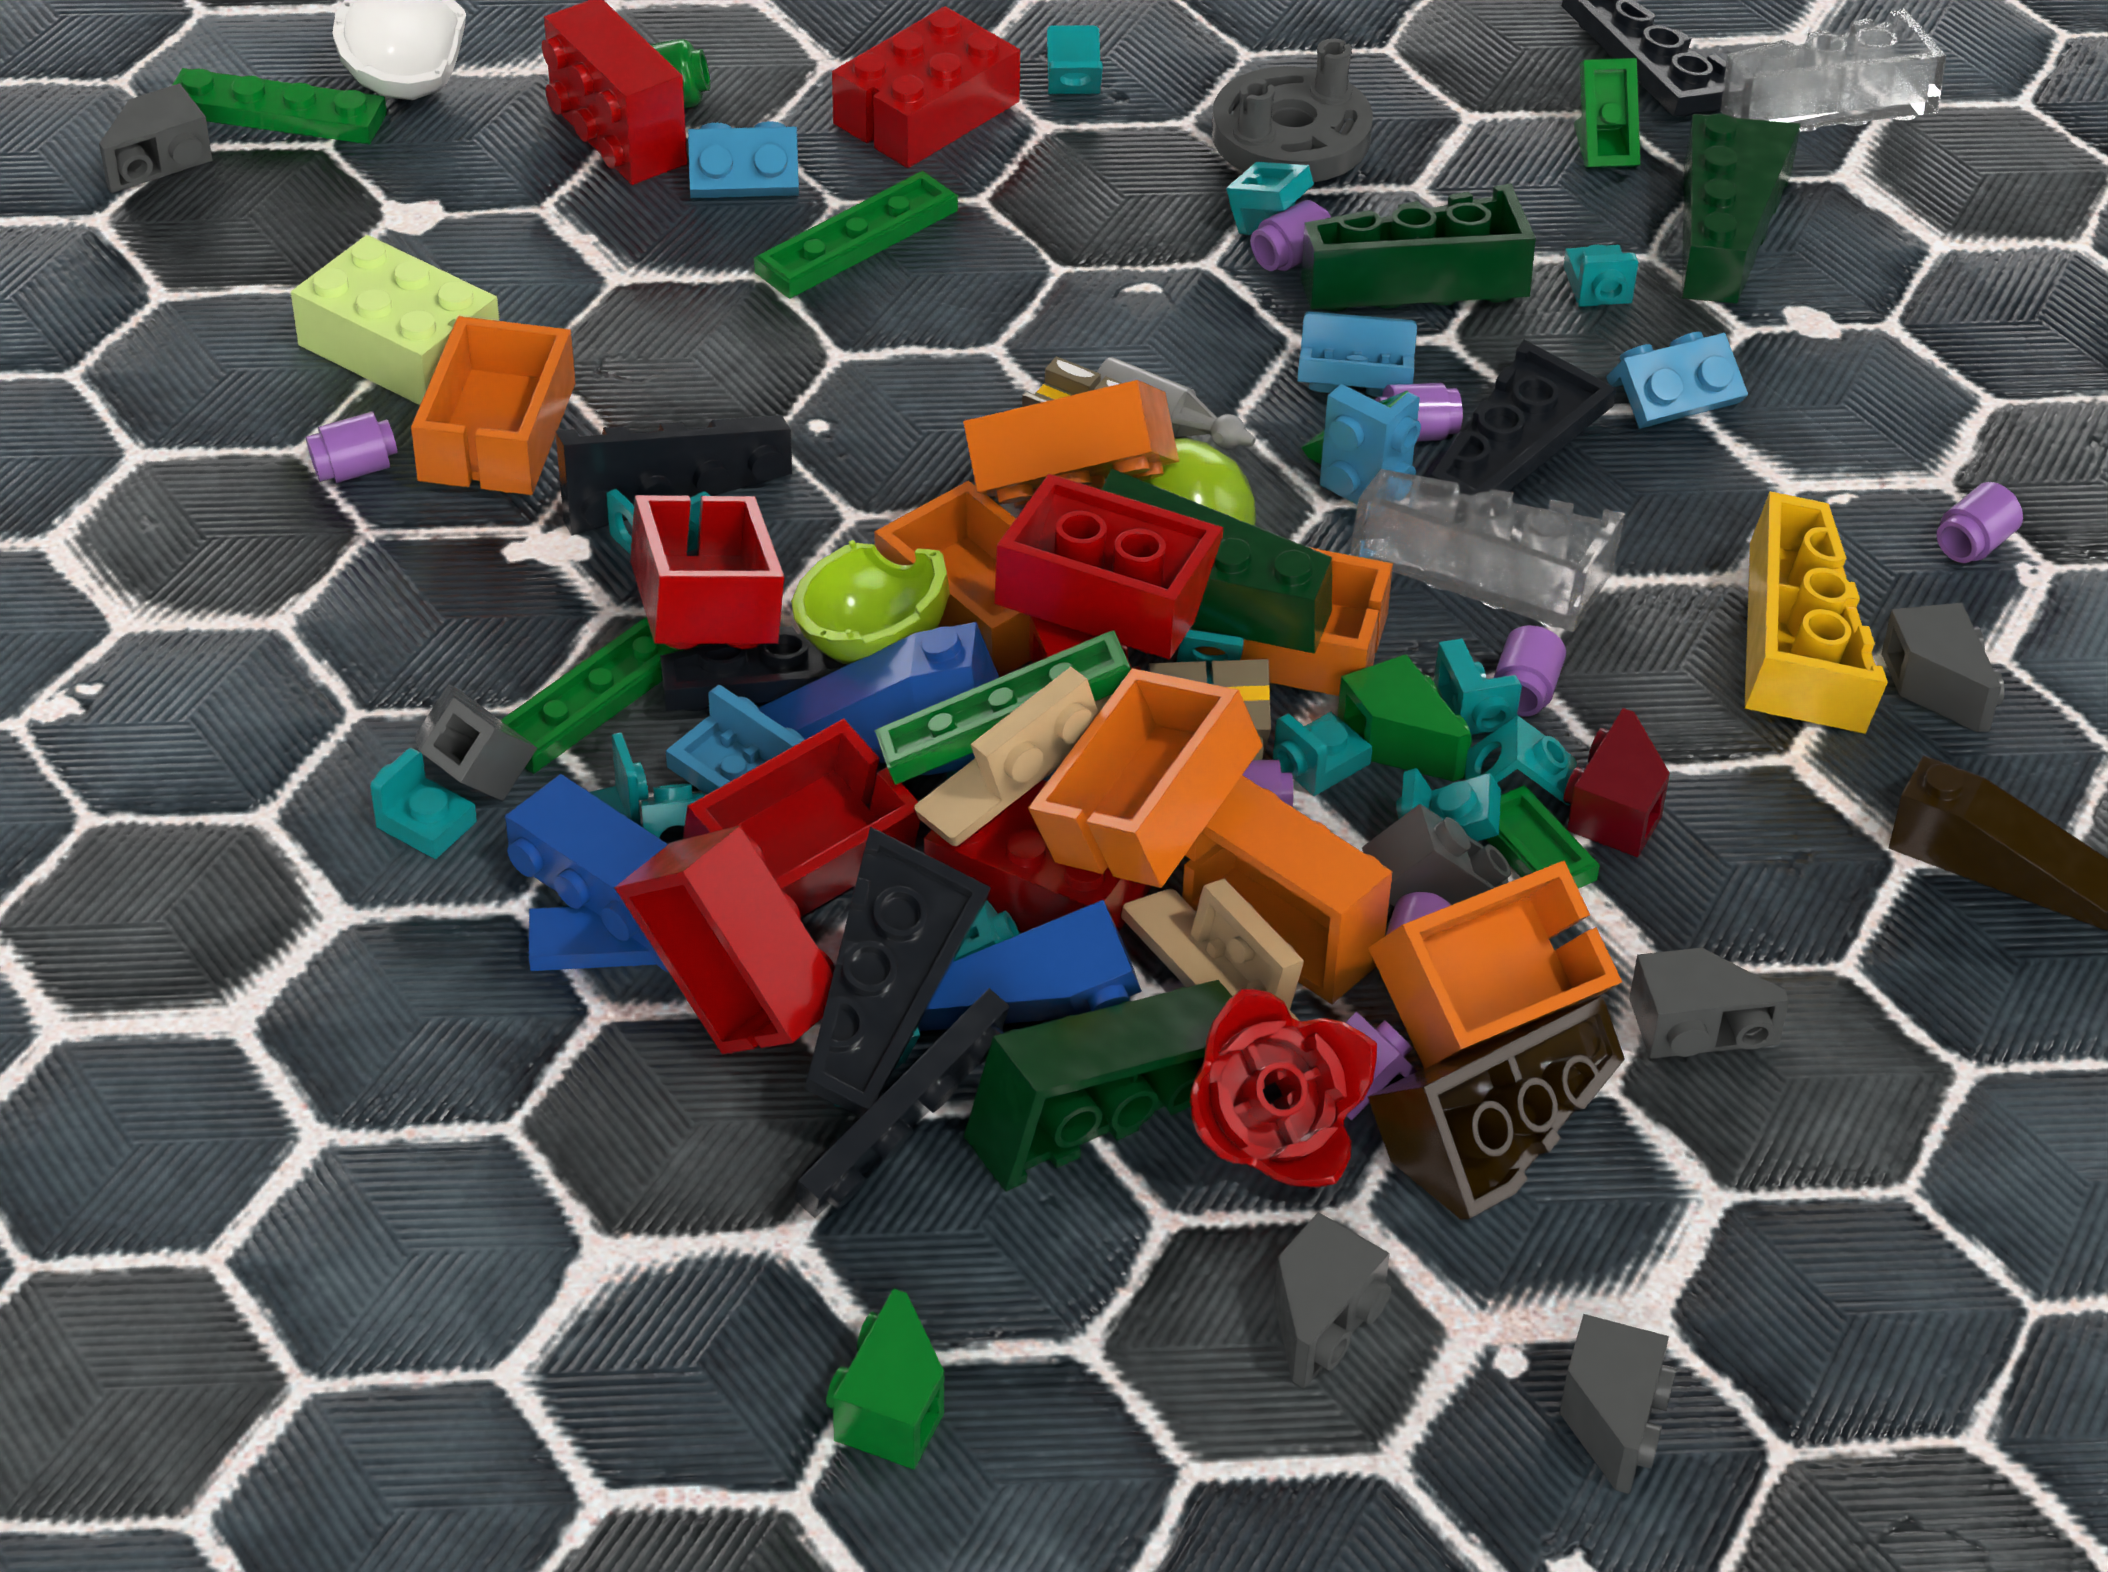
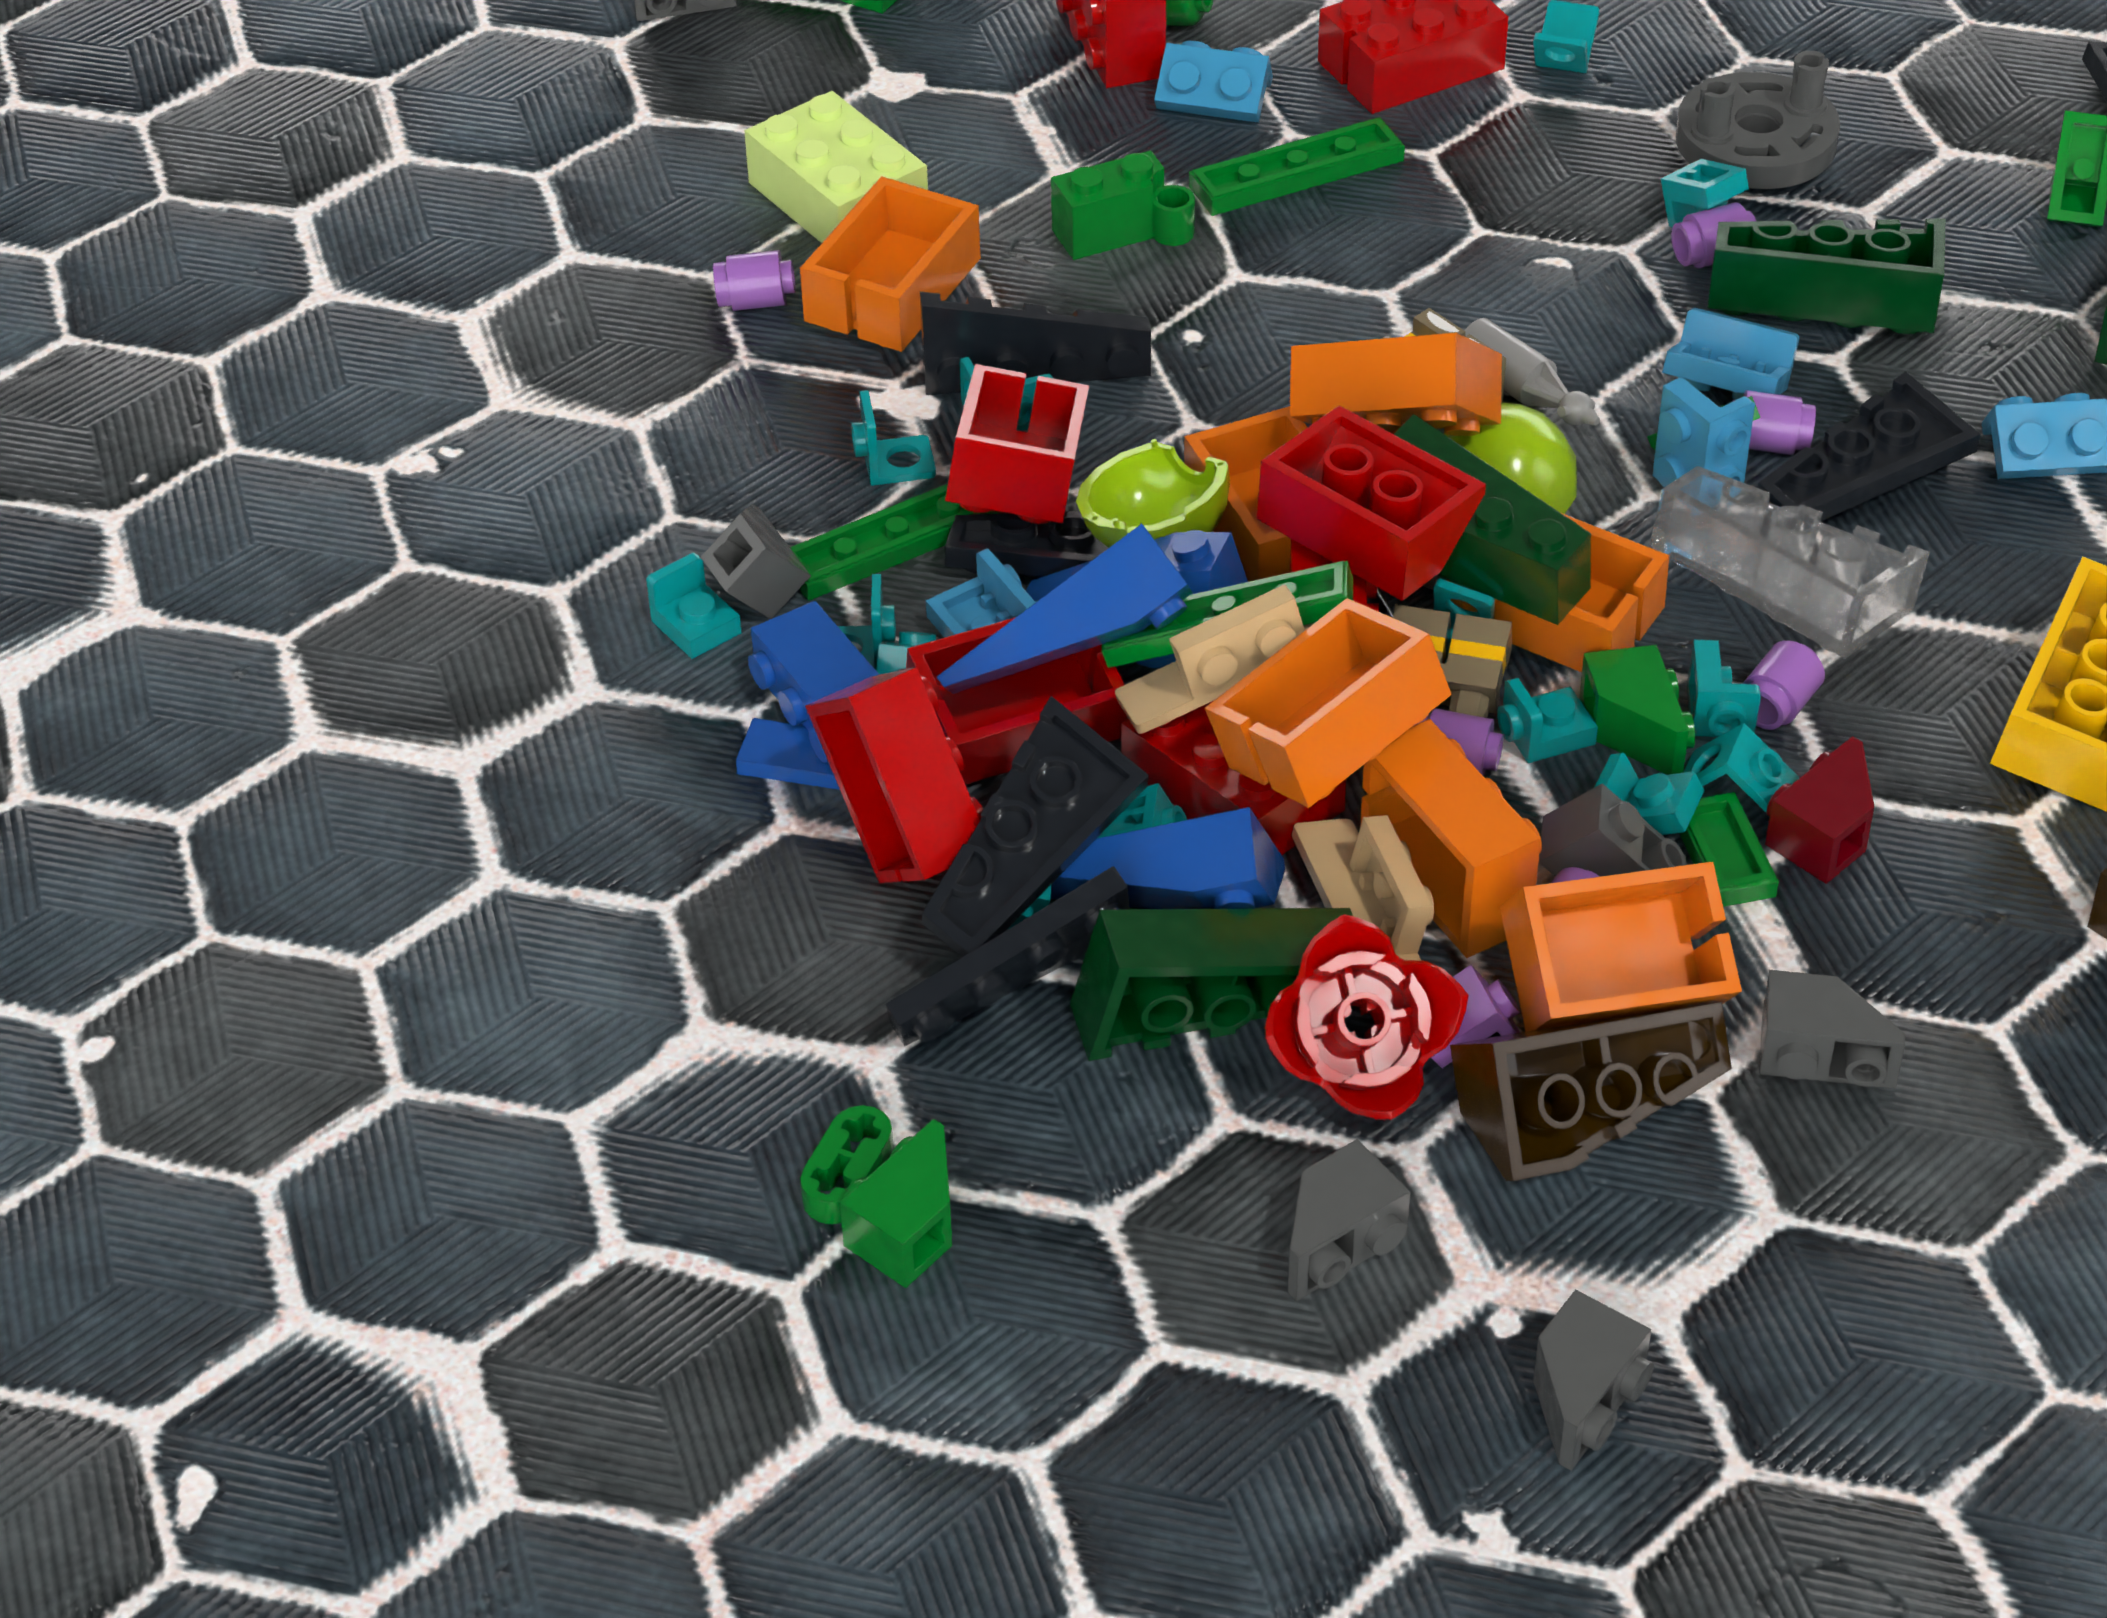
camera: 20 degrees right, 0 degrees up
(543, 599) = (878, 451): none -> teal bracket
(701, 306) = (1120, 206): none -> green hinge
(795, 1353) = (834, 1159): none -> green beam
(888, 717) = (1100, 603): none -> blue wedge
(1601, 274) = (2015, 324): teal bracket -> none

